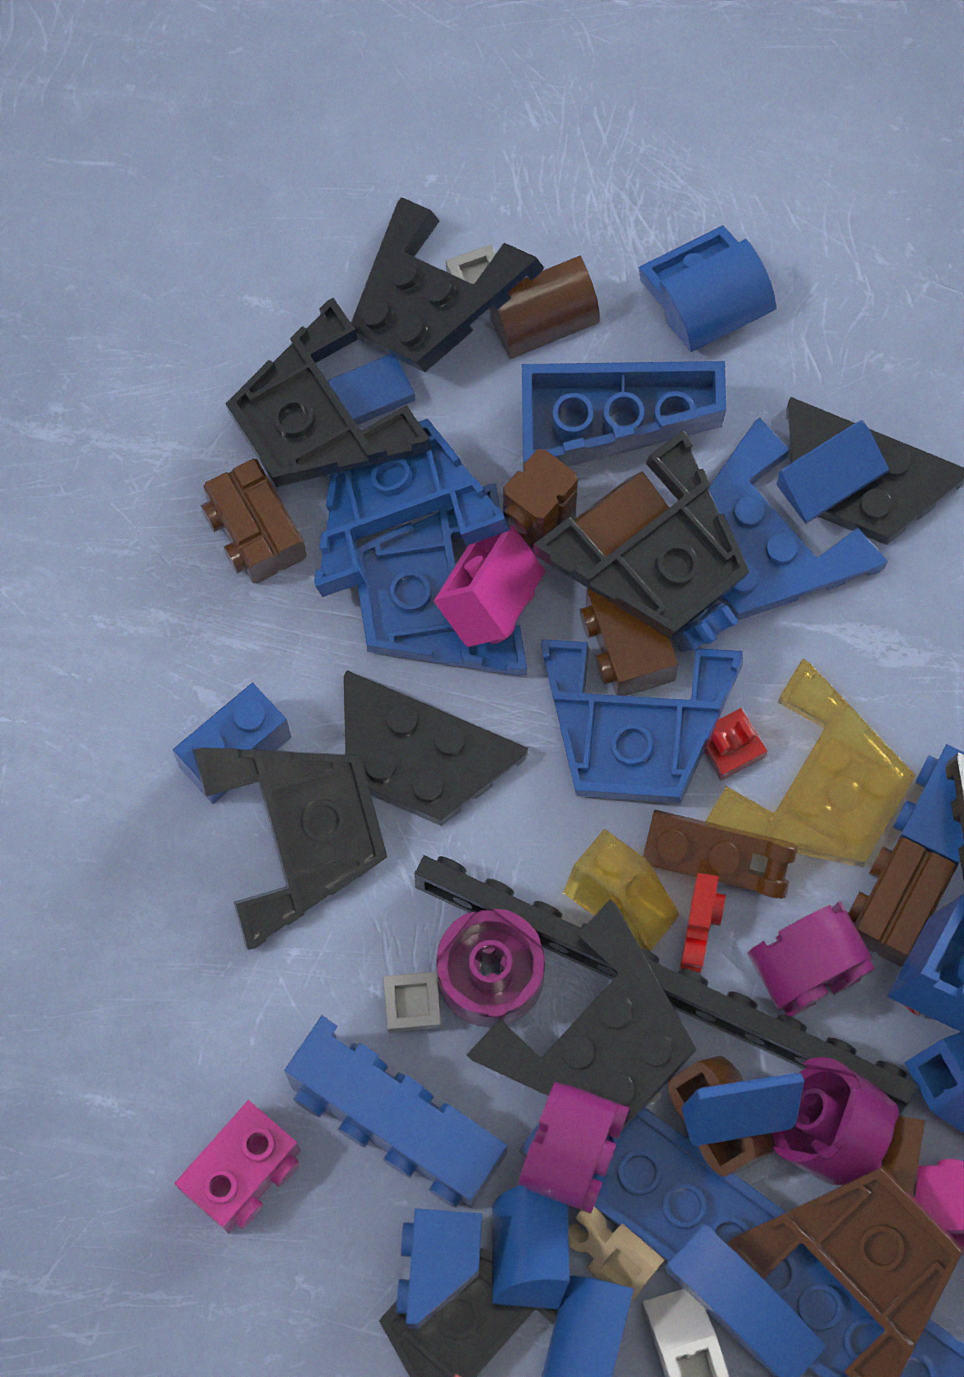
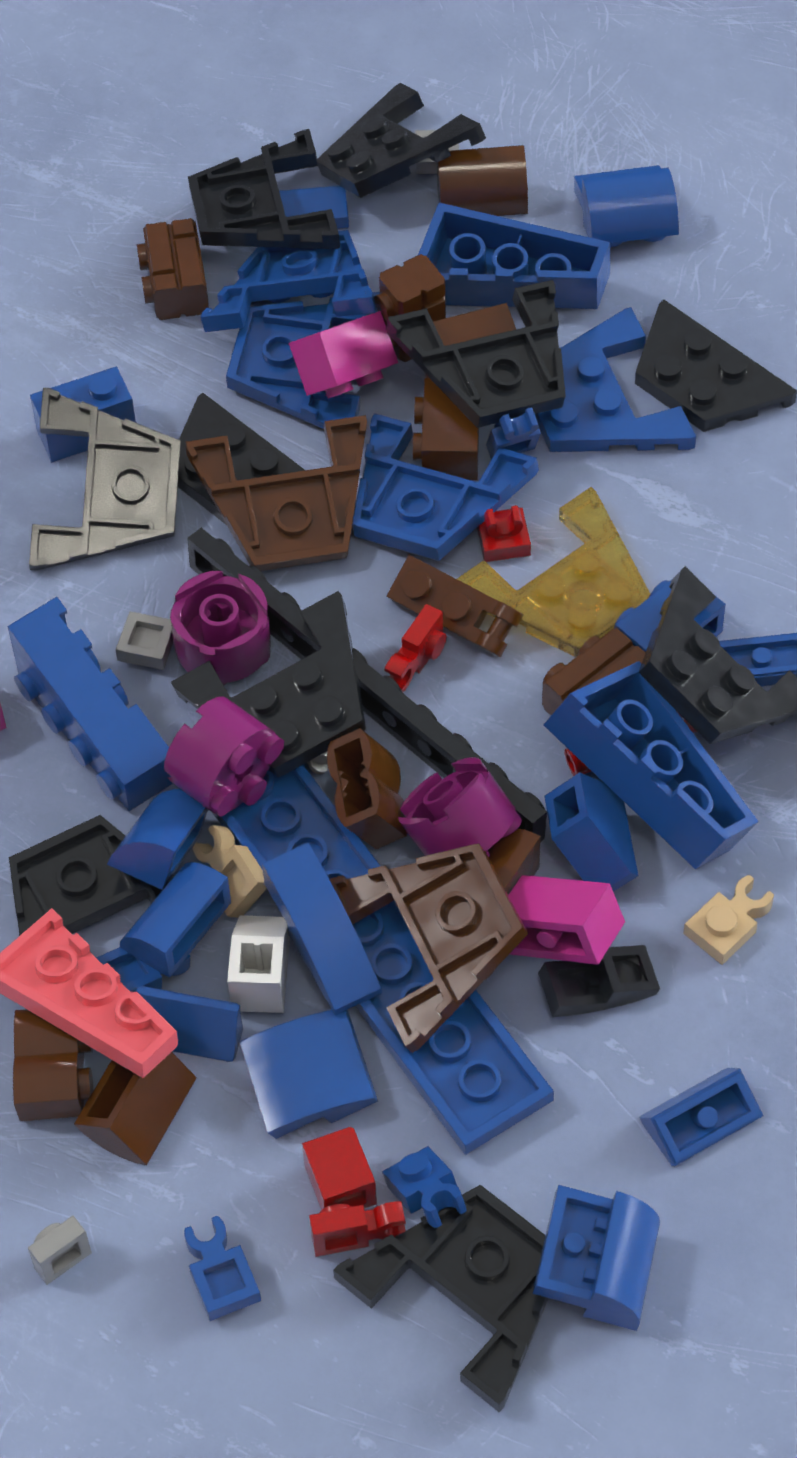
camera: 20 degrees right, 15 degrees down
(443, 1261) = (78, 819): blue slope -> none
(507, 801) = (287, 515): none -> reddish brown wing
(621, 874) = (367, 602): clear yellow slope -> none
(743, 1109) = (379, 763): blue slope -> none
(810, 957) = (496, 693): magenta brick -> none
(832, 472) = (671, 350): blue slope -> none

